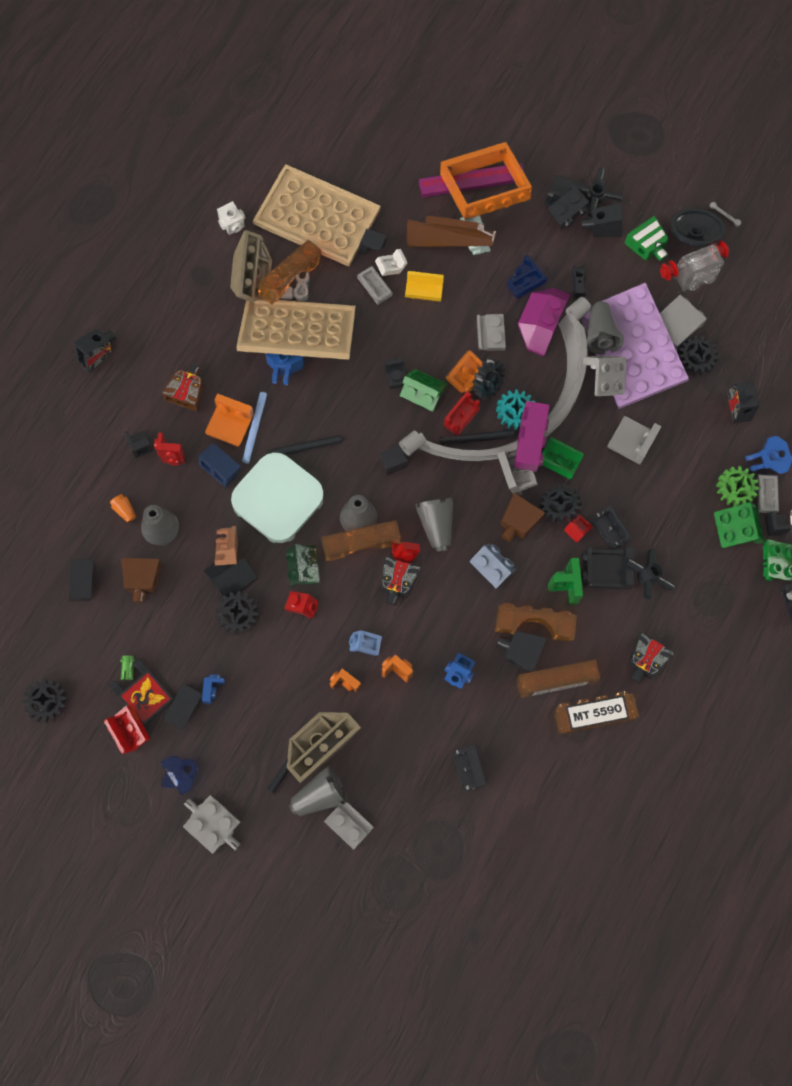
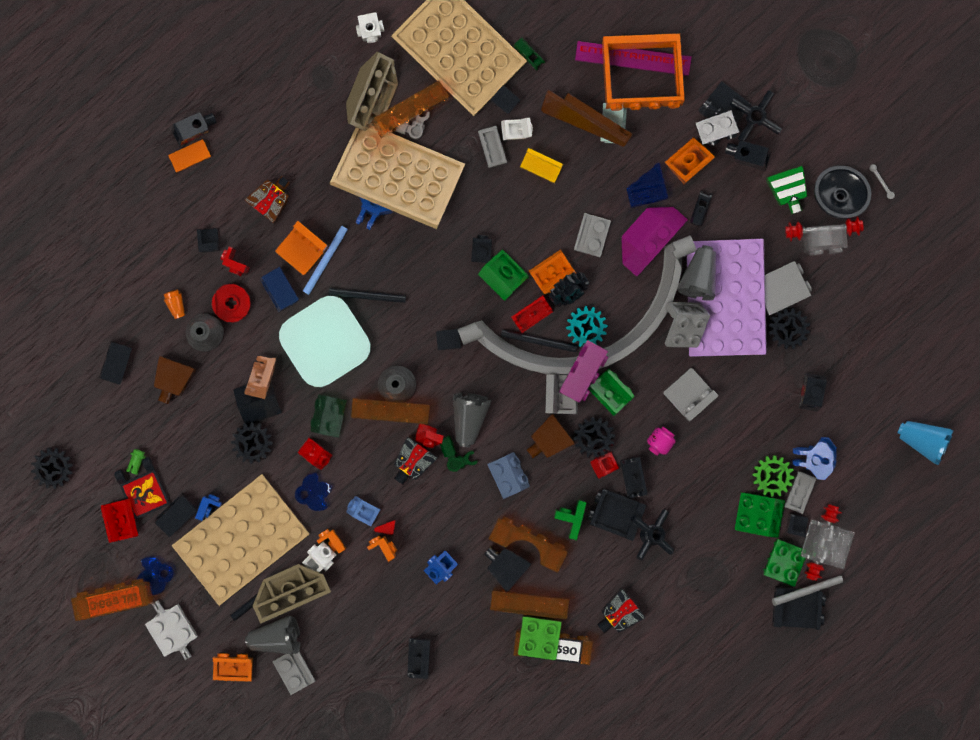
camera: 25 degrees right, 15 degrees up
(99, 375) = (189, 156): none -> orange tile
(142, 812) = (112, 601): none -> clear orange brick
(168, 486) = (222, 296): none -> red plate
(254, 711) = (240, 539): none -> tan plate
(285, 841) = (232, 668): none -> orange bracket
(314, 640) = (316, 492): none -> clear blue plate
(338, 699) = (319, 557): none -> white brick
(378, 199) = (527, 51): none -> dark green bar
(396, 649) = (387, 528): none -> red slope
(437, 571) = (454, 463): none -> dark green bar
(554, 244) = (689, 160): none -> orange slope
(580, 706) = (539, 637): none -> bright green bracket
(623, 487) = (661, 441): none -> dark pink head

